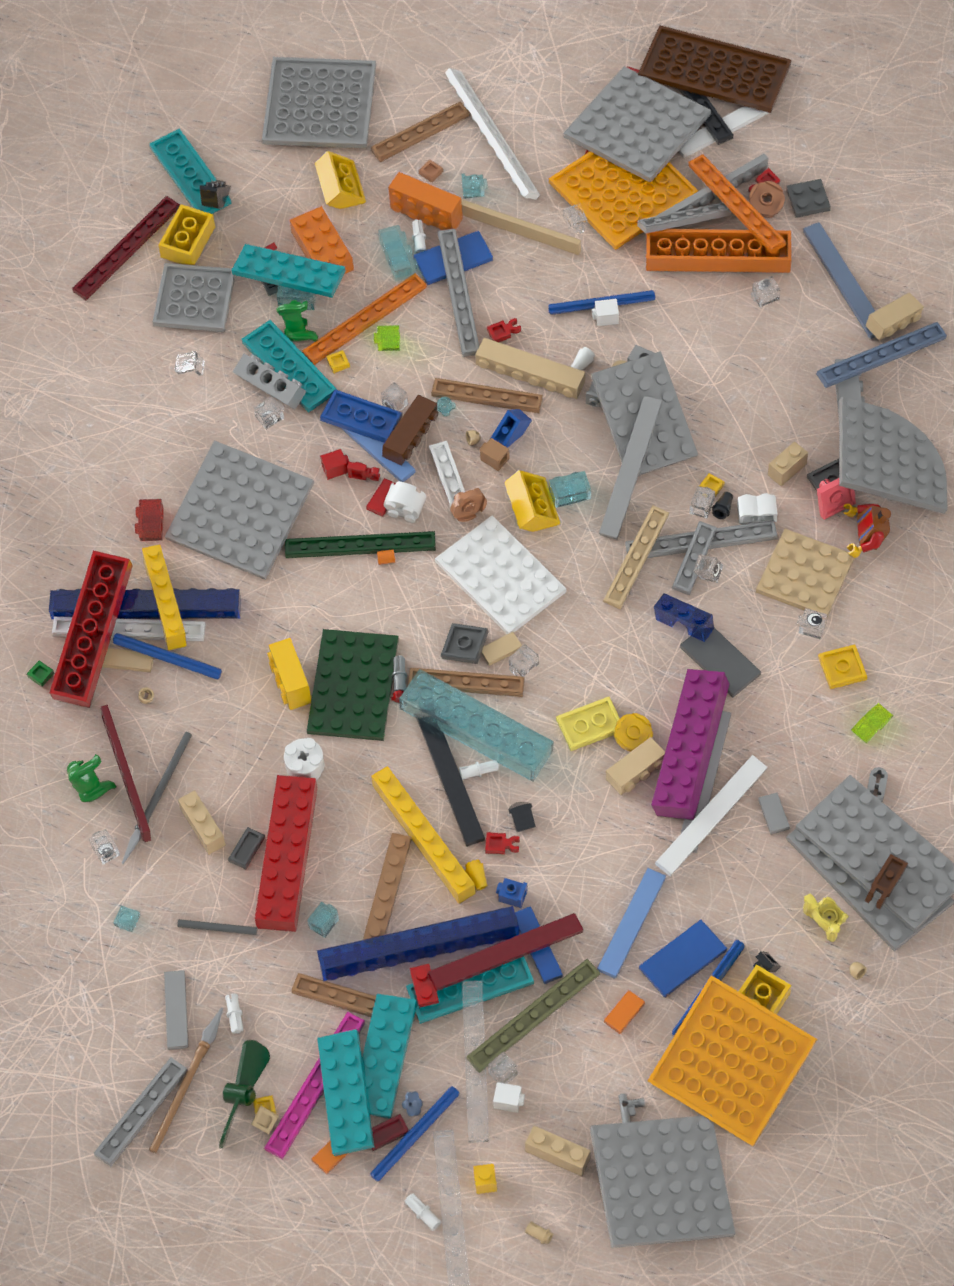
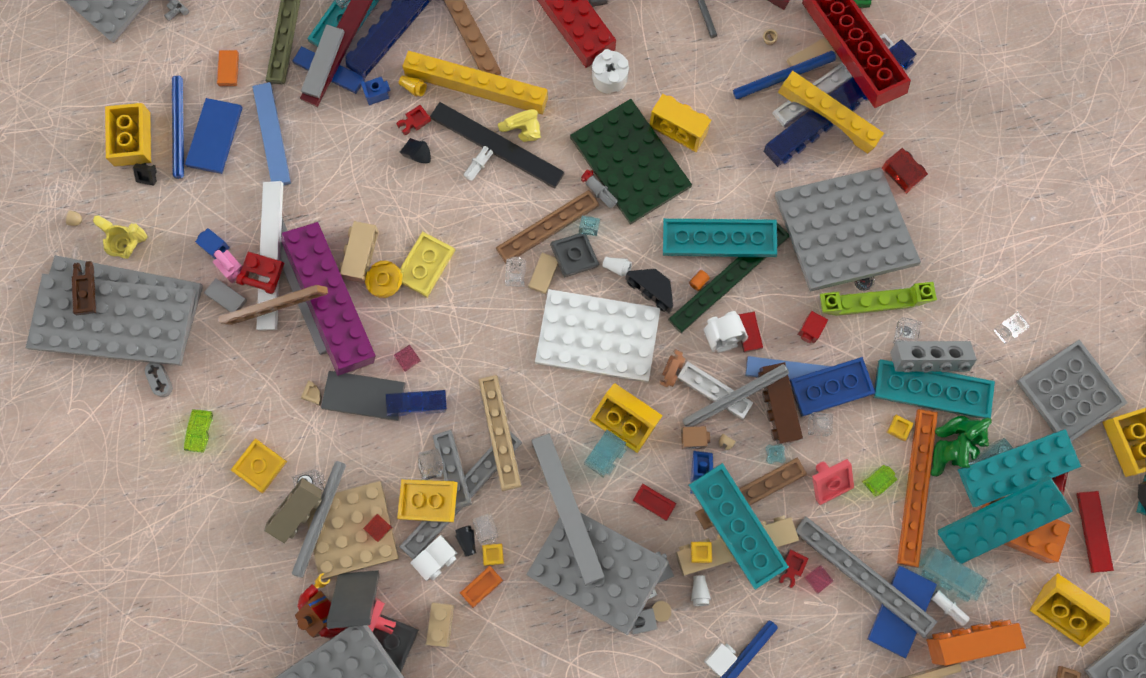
camera: 135 degrees right, 15 degrees up
(266, 450) = (917, 295): none -> lime slope
(272, 212) = (1094, 531): none -> red tile
(320, 315) = (954, 450): none -> green hair
(335, 245) = (1005, 520): none -> teal plate
(342, 572) = (720, 237): none -> teal plate
(360, 471) = (787, 337): red plate -> none
(415, 766) = (525, 121): none -> light yellow hair
(423, 358) = (832, 481): none -> coral tile
(426, 576) = (653, 287): none -> black slope
(433, 656) = (589, 225): none -> clear light blue plate
(438, 609) = (617, 265): none -> white cone
(440, 452) = (736, 396): none -> light grey axle
(476, 725) = (505, 190): clear light blue brick -> none
(491, 313) = (818, 579): none -> clear pink tile
(519, 369) = (738, 526): none -> teal plate
(538, 939) = (322, 61): none -> light grey tile
(560, 375) = (701, 552): none -> yellow tile
(562, 437) = (654, 502): none -> red tile
(663, 662) = (407, 358): none -> clear pink tile
(725, 805) = (261, 266): none -> red plate
(731, 545) = (427, 500): none -> yellow plate
(732, 1060) = (113, 77): light orange plate -> none
(737, 471) = (481, 586): none -> orange tile
(739, 758) = (273, 305): none -> medium nougat tile
(752, 830) = (227, 265): none -> bright pink brick
(753, 860) = (211, 242): none -> blue brick
(760, 690) = (311, 393): none -> tan tile
(783, 553) = (377, 527): none -> clear red tile
(822, 588) = (318, 519): none -> light grey axle
(836, 508) = (353, 599): none -> dark grey tile
(838, 604) = (293, 511): none -> dark tan brick

